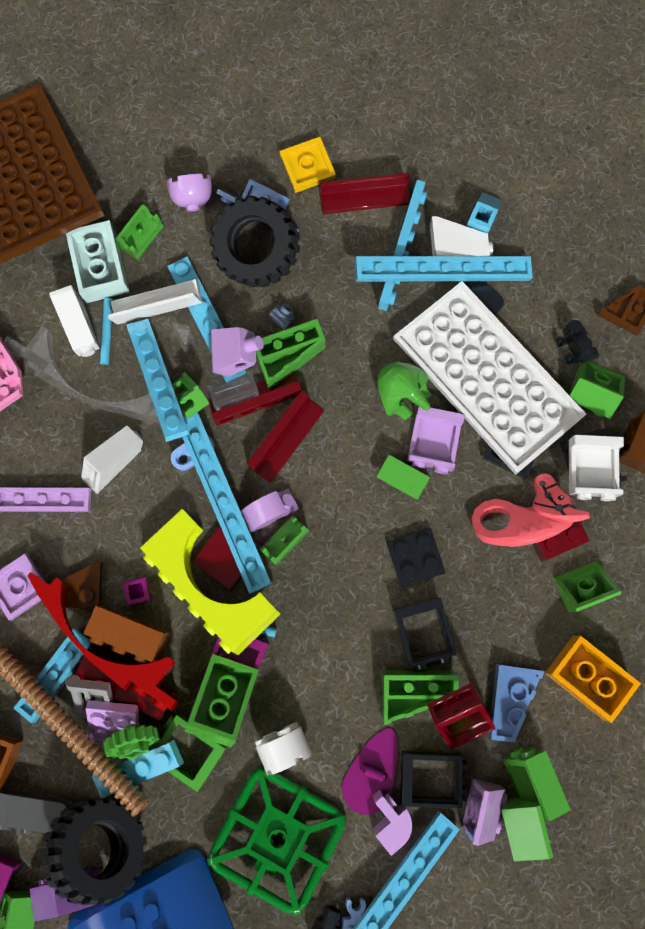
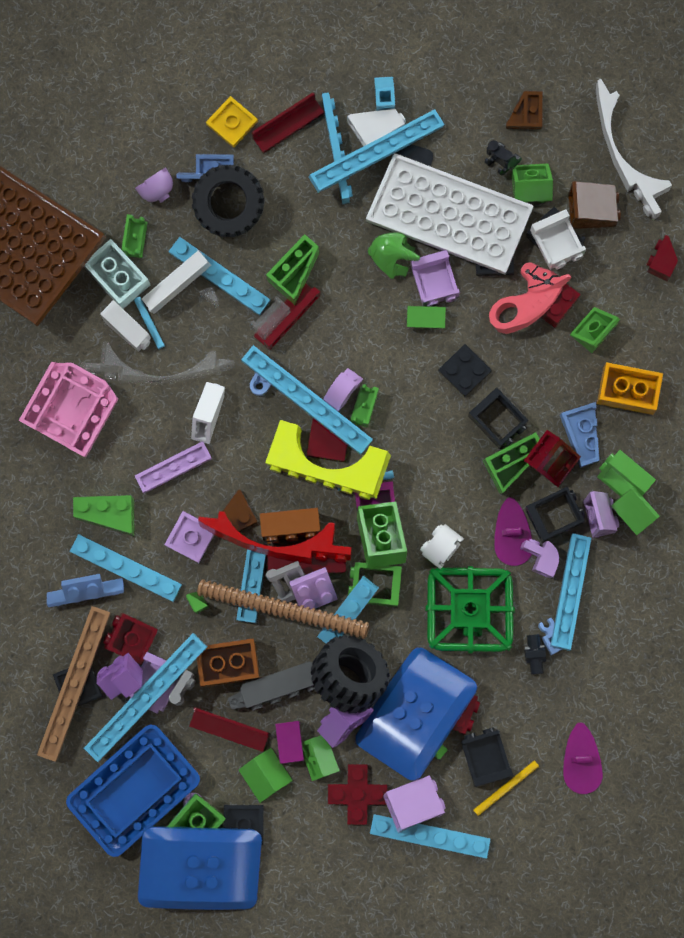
camera: 25 degrees left, 0 degrees up
(131, 742) = (335, 591): bright green gear -> none
(137, 591) = (279, 495): magenta slope -> none
(157, 380) = (210, 337): medium azure plate -> none
(191, 398) = (242, 337): bright green hinge -> none
(234, 350) = (256, 287): lavender torso -> none
(282, 315) = (274, 245): sand blue plate -> none
(285, 437) = (325, 332): dark red panel -> none

